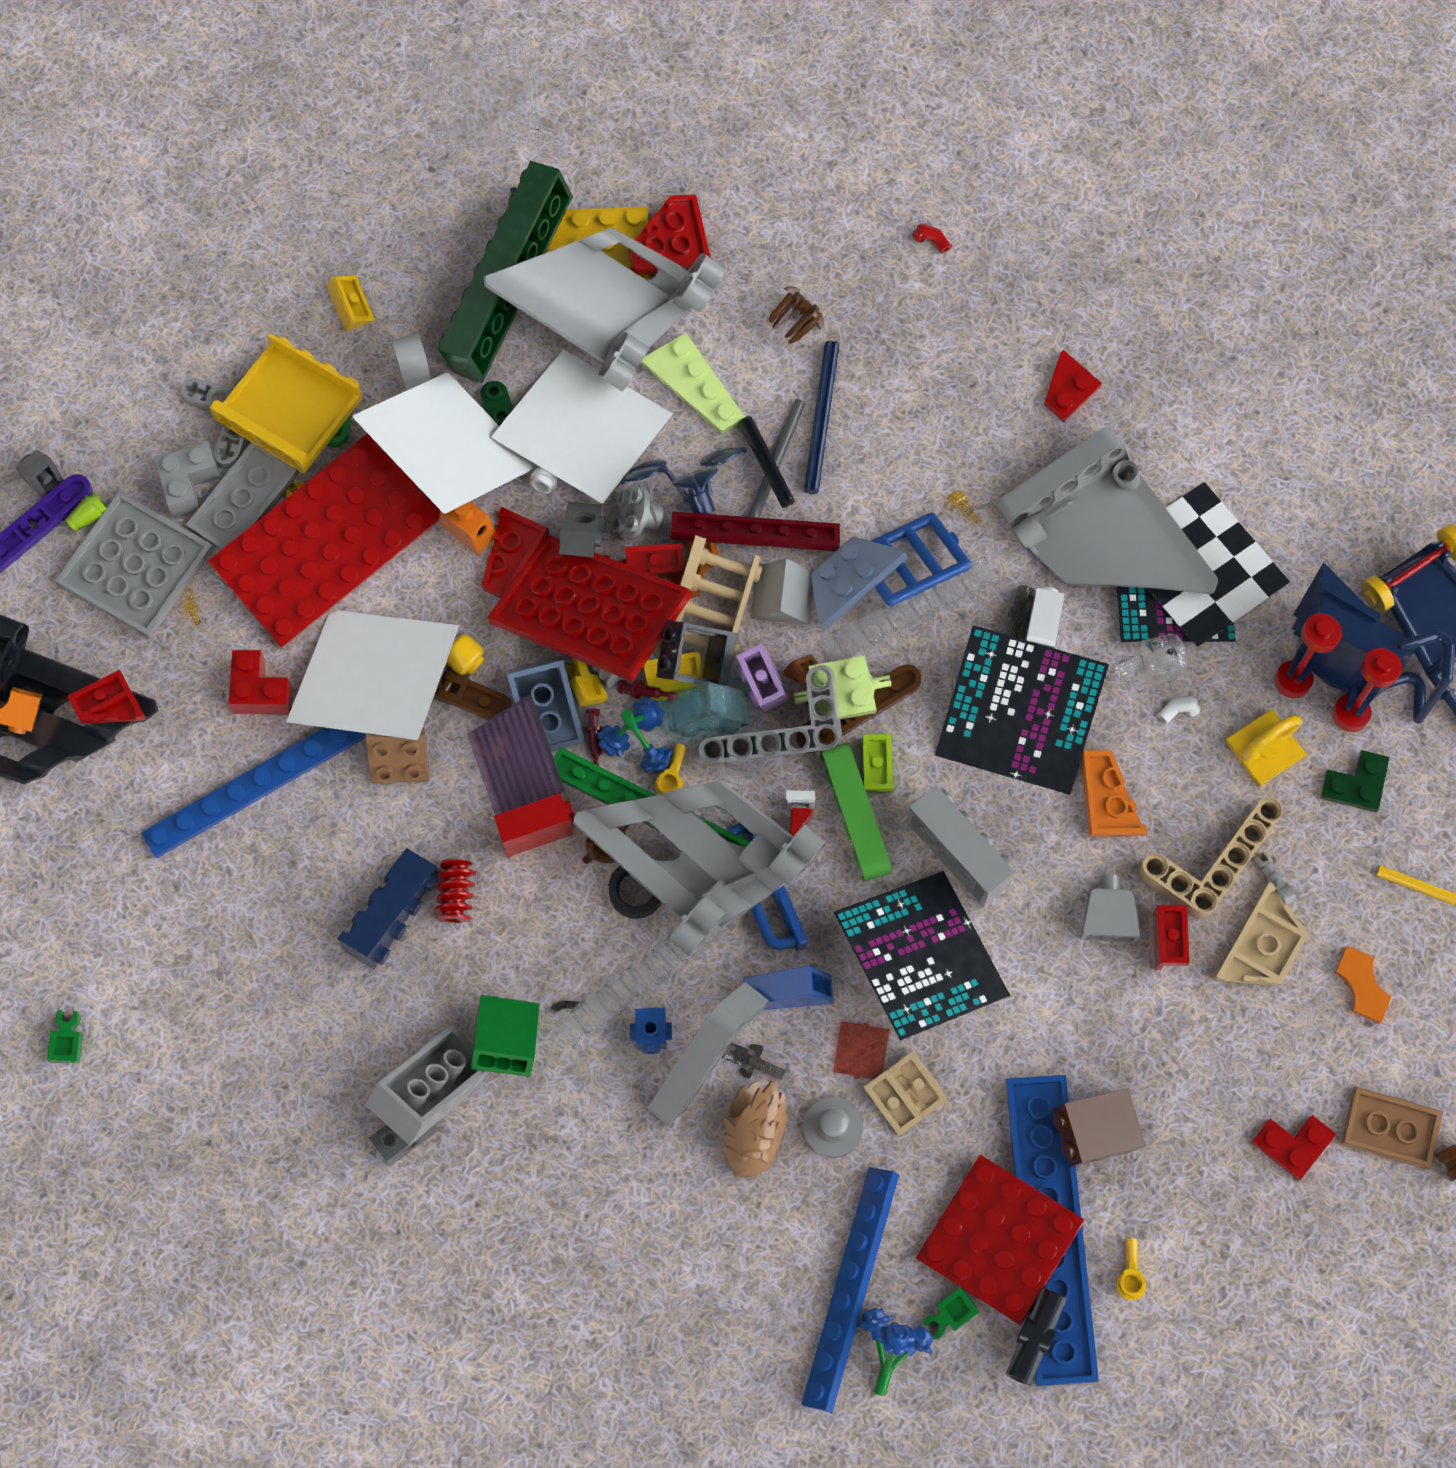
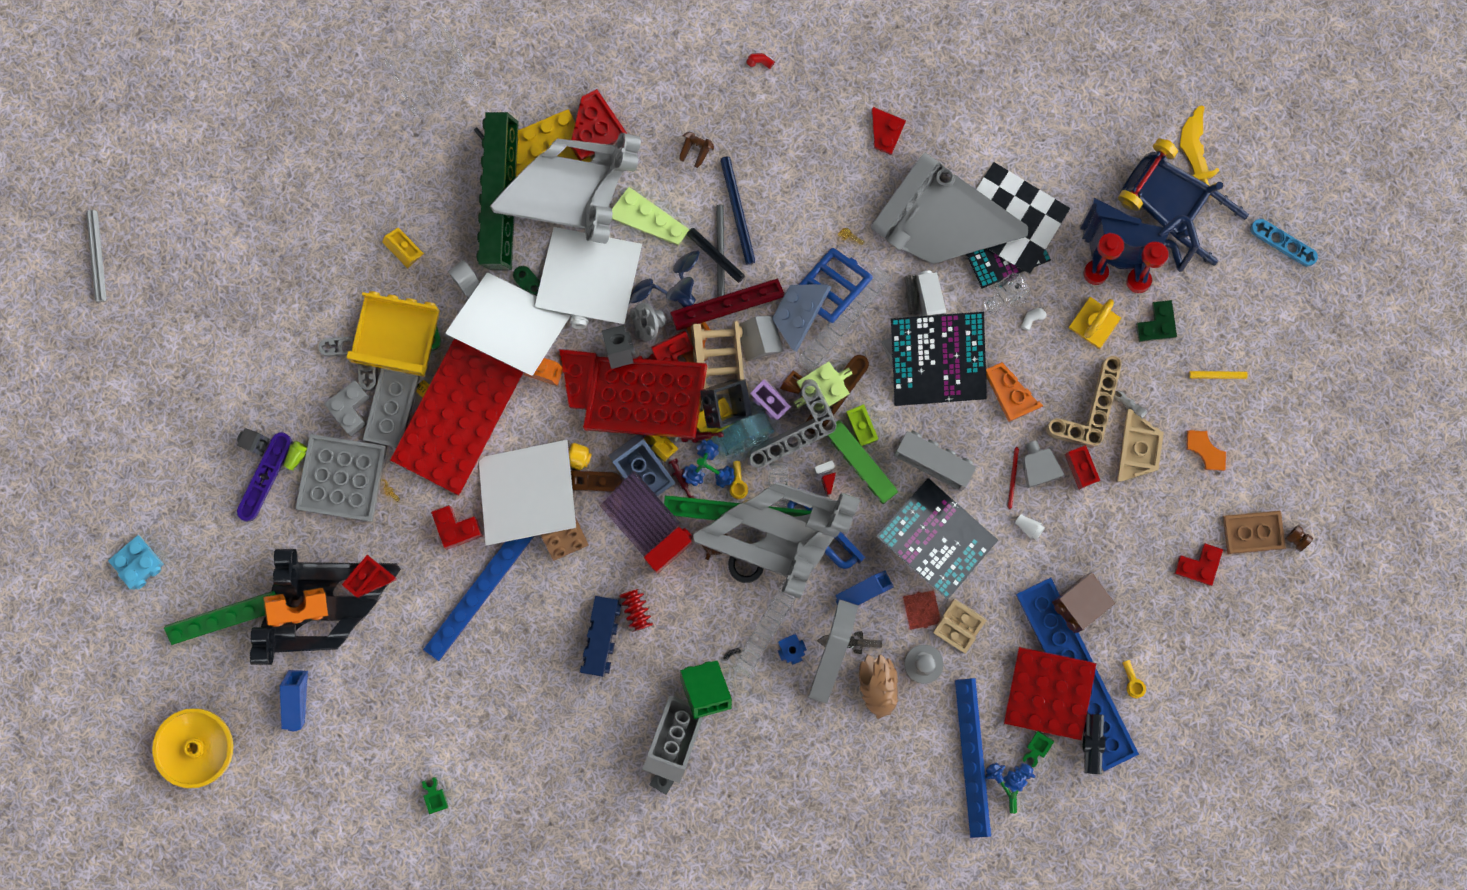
camera: 25 degrees left, 10 degrees up
(1063, 993) = (1030, 527): none -> white cone
(1065, 918) = (1013, 478): none -> red axle

